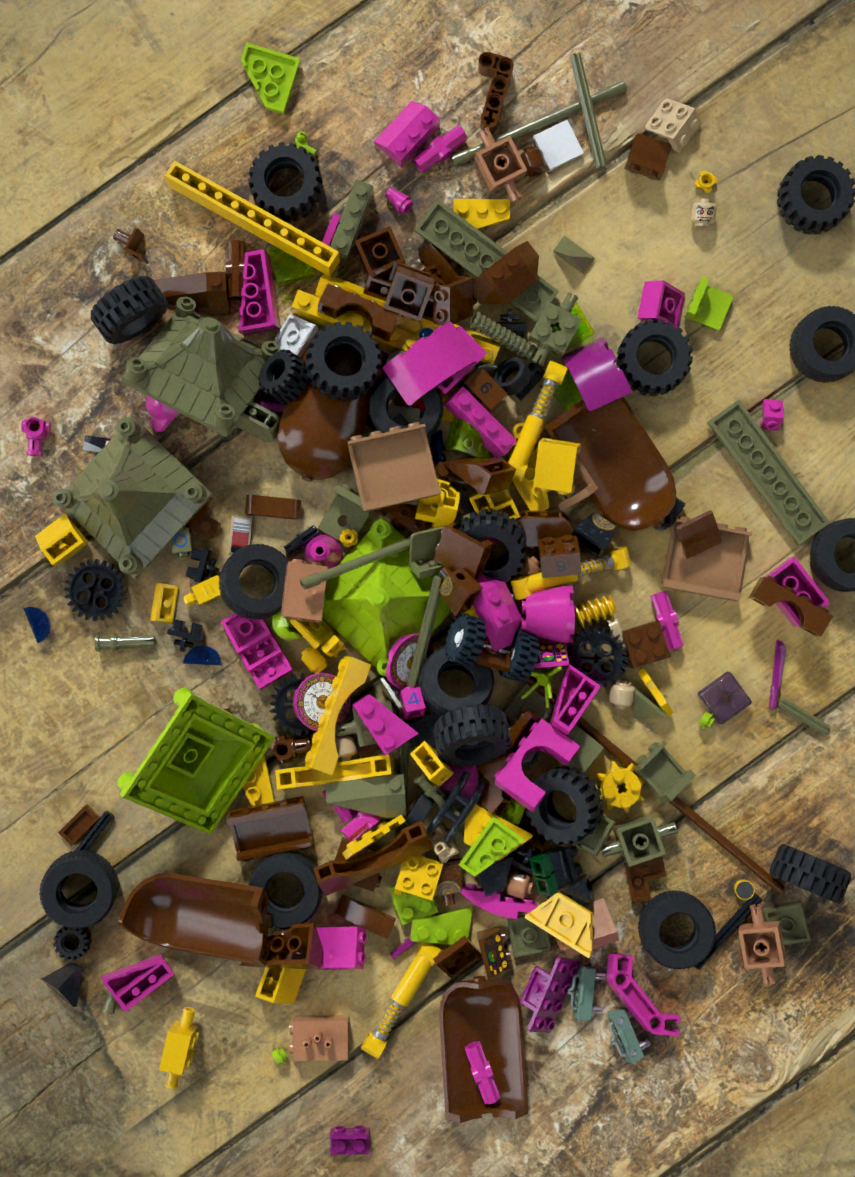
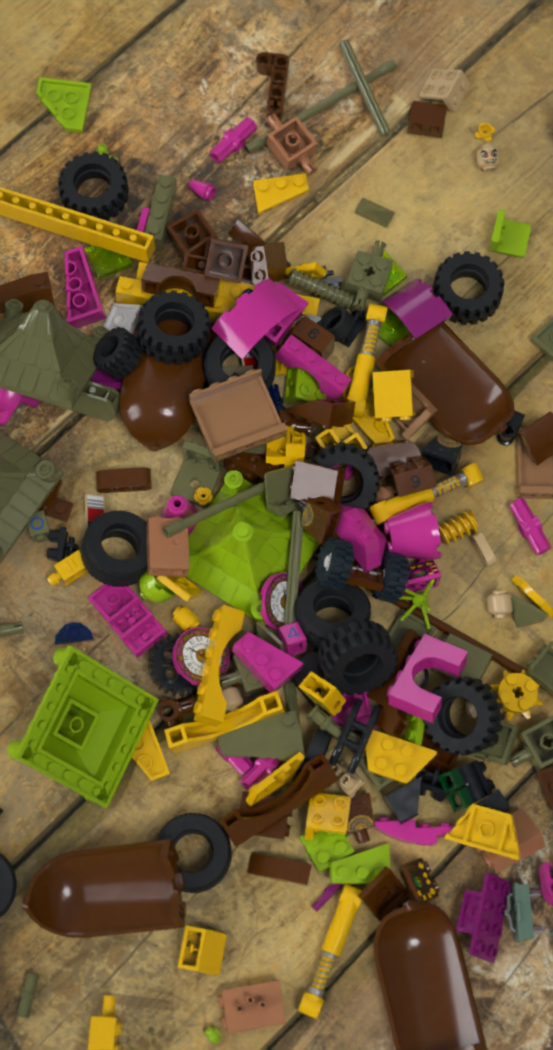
camera: 10 degrees left, 15 degrees down
(137, 980) = (50, 973): dark pink wedge -> none
(164, 603) = (27, 589): yellow slope -> none
(177, 630) = (54, 618): black hips -> none
(235, 269) = (56, 271): reddish brown piece -> none
(270, 828) = (167, 793): reddish brown panel -> none
(294, 948) = (210, 907): reddish brown wedge -> none
(301, 540) = (156, 507): black axle -> none
(333, 646) = (204, 600): yellow plate -> none
(342, 948) = (254, 903): dark pink piece -> none
(408, 132) = (201, 131): dark pink slope -> none
(477, 253) = (292, 227): olive plate -> none
(482, 1072) = (430, 1014): dark pink piece -> none
(490, 846) = (395, 767): lime wing -> none
(492, 312) = (312, 269): none -> yellow plate
(507, 276) = (315, 236): reddish brown wedge -> none
(518, 884) = (432, 810): nougat head -> none
(527, 937) = (452, 863): olive tile -> none
(533, 160) = (323, 136): reddish brown head -> none
(558, 145) = (342, 122): white tile -> none
(572, 699) = (452, 611): dark pink wedge -> none
(596, 639) = (471, 587): black gear -> none
(645, 644) = (513, 551): reddish brown brick -> none
(662, 302) = (464, 236): dark pink slope -> none

